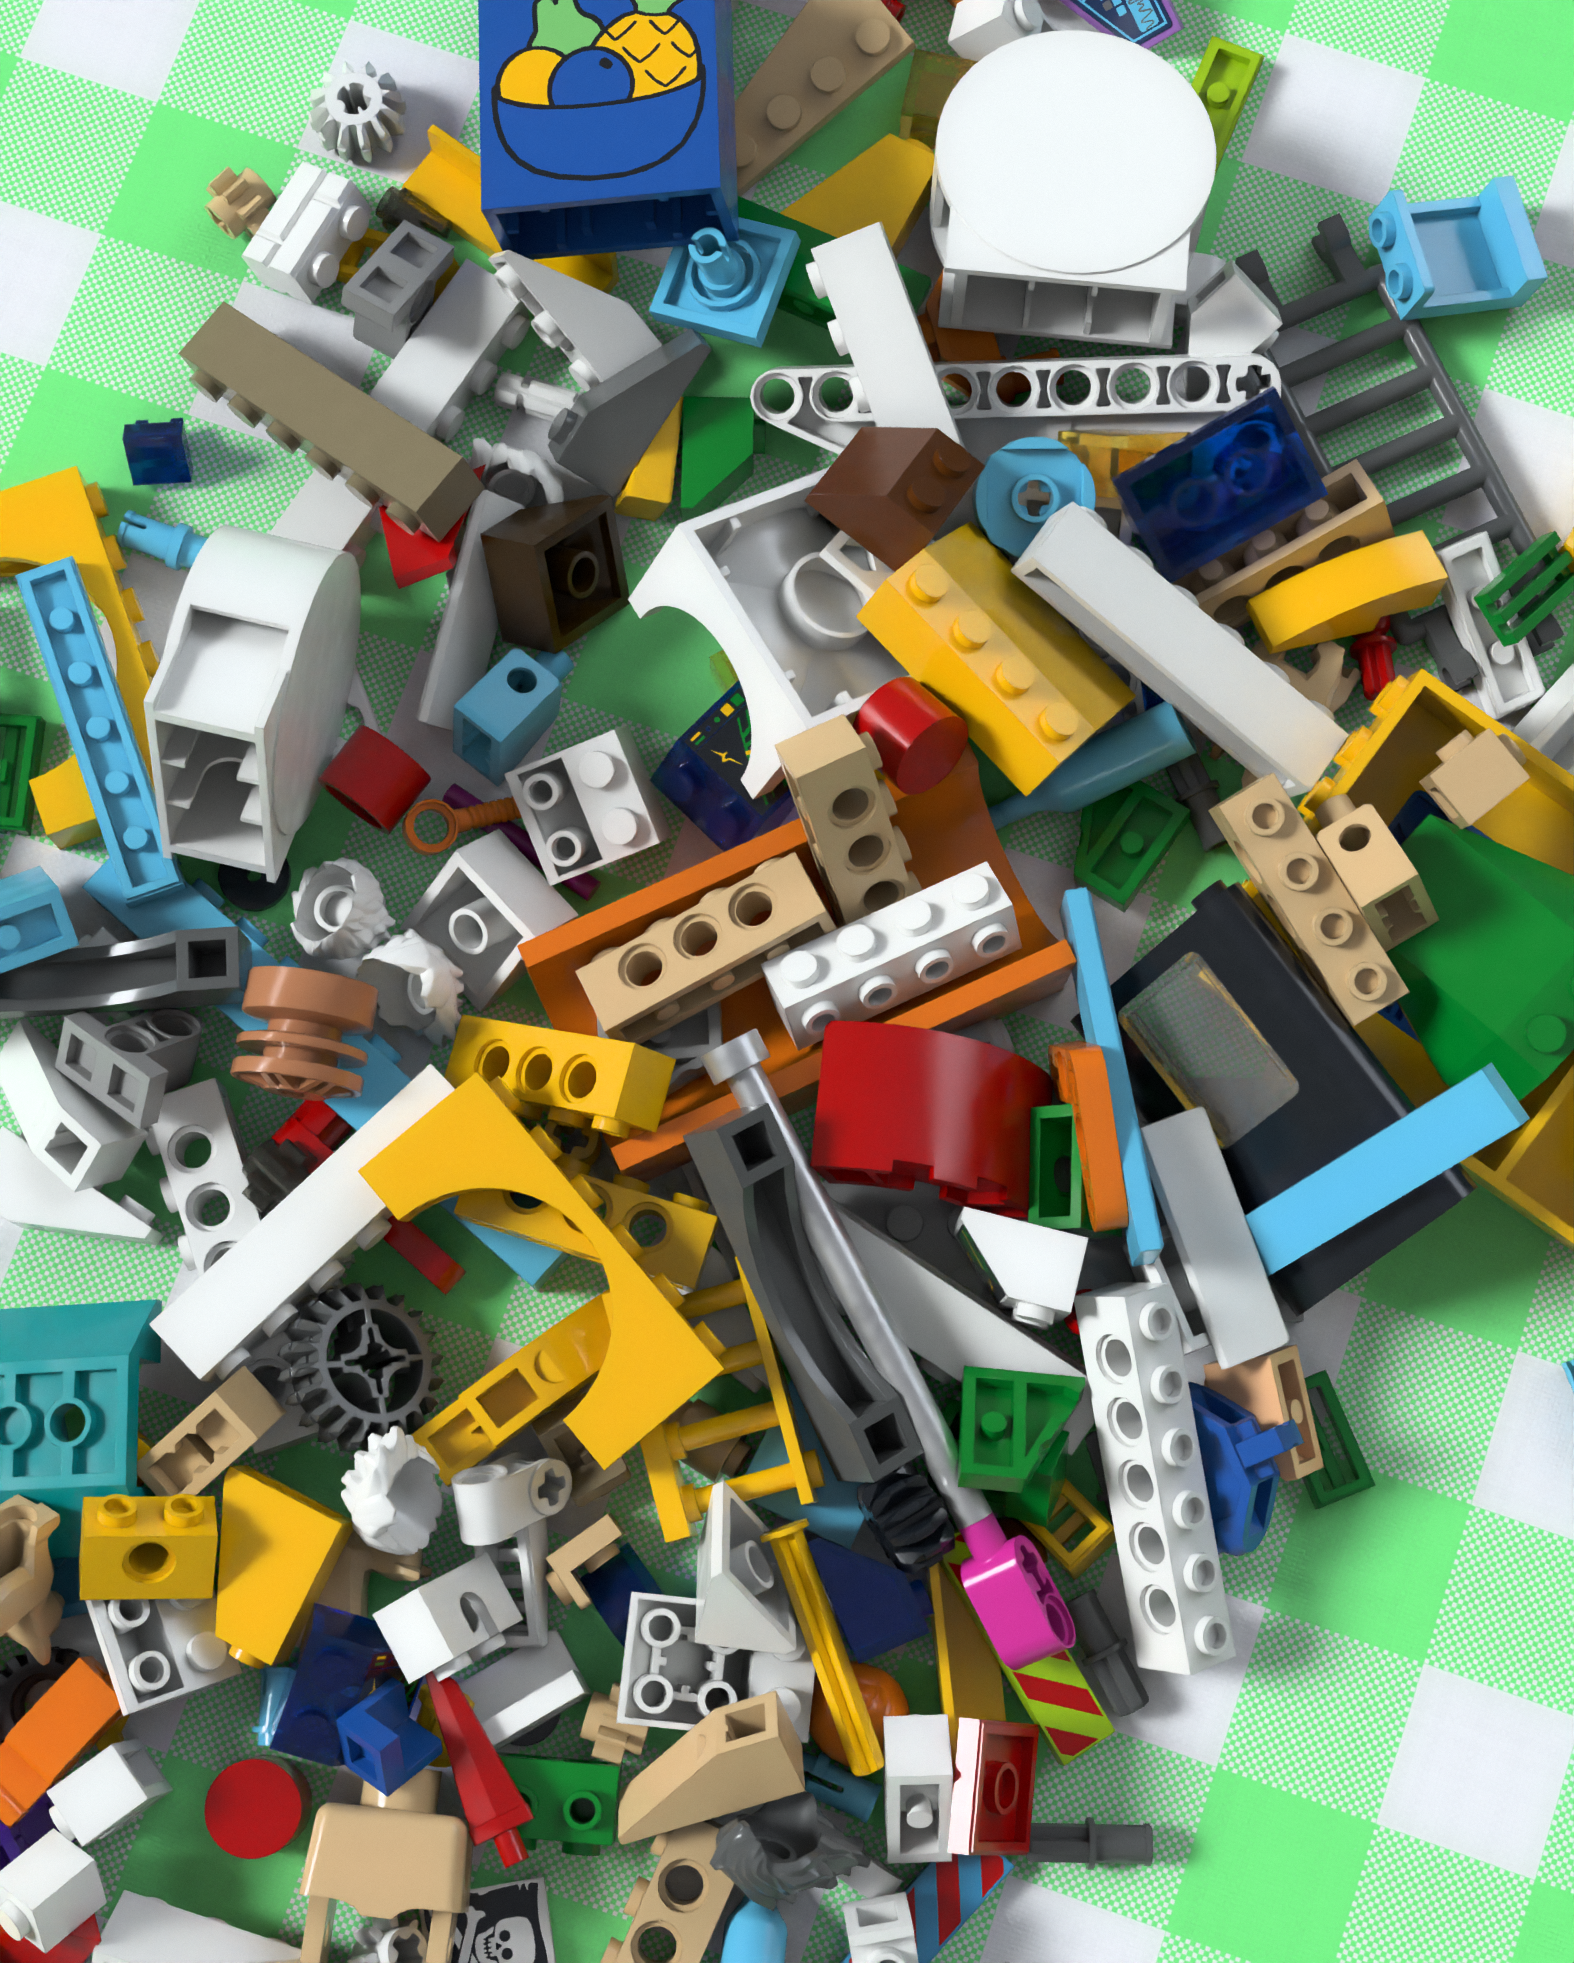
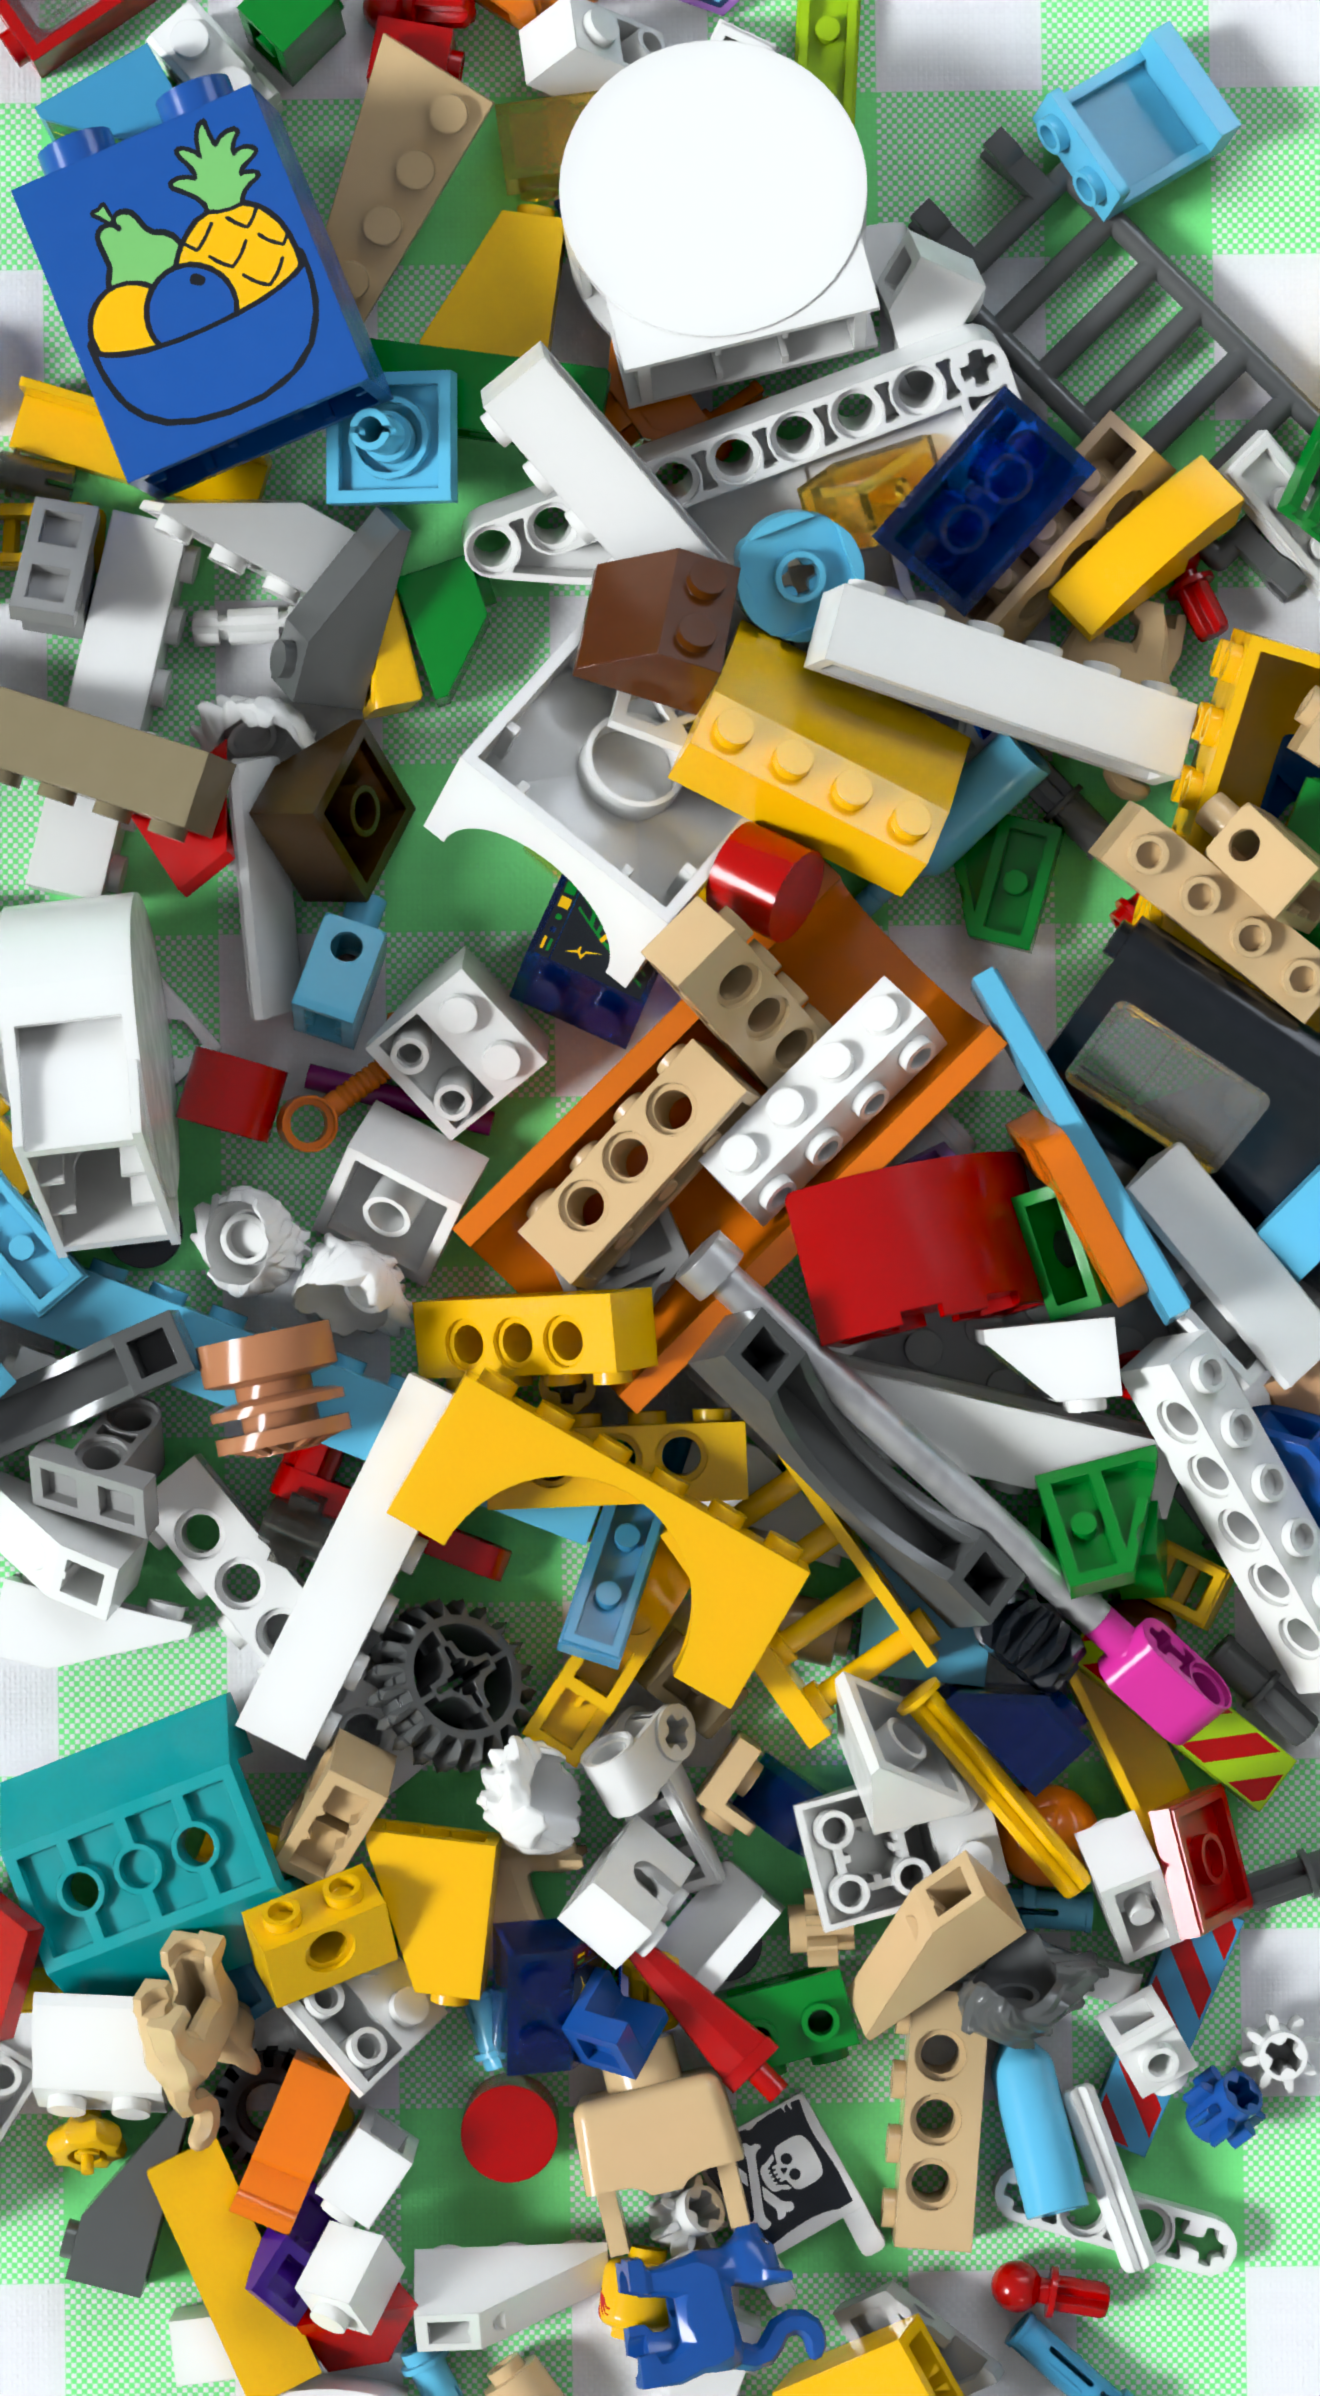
camera: 25 degrees left, 10 degrees up
(549, 1319) = (616, 1574): none -> dark azure tile

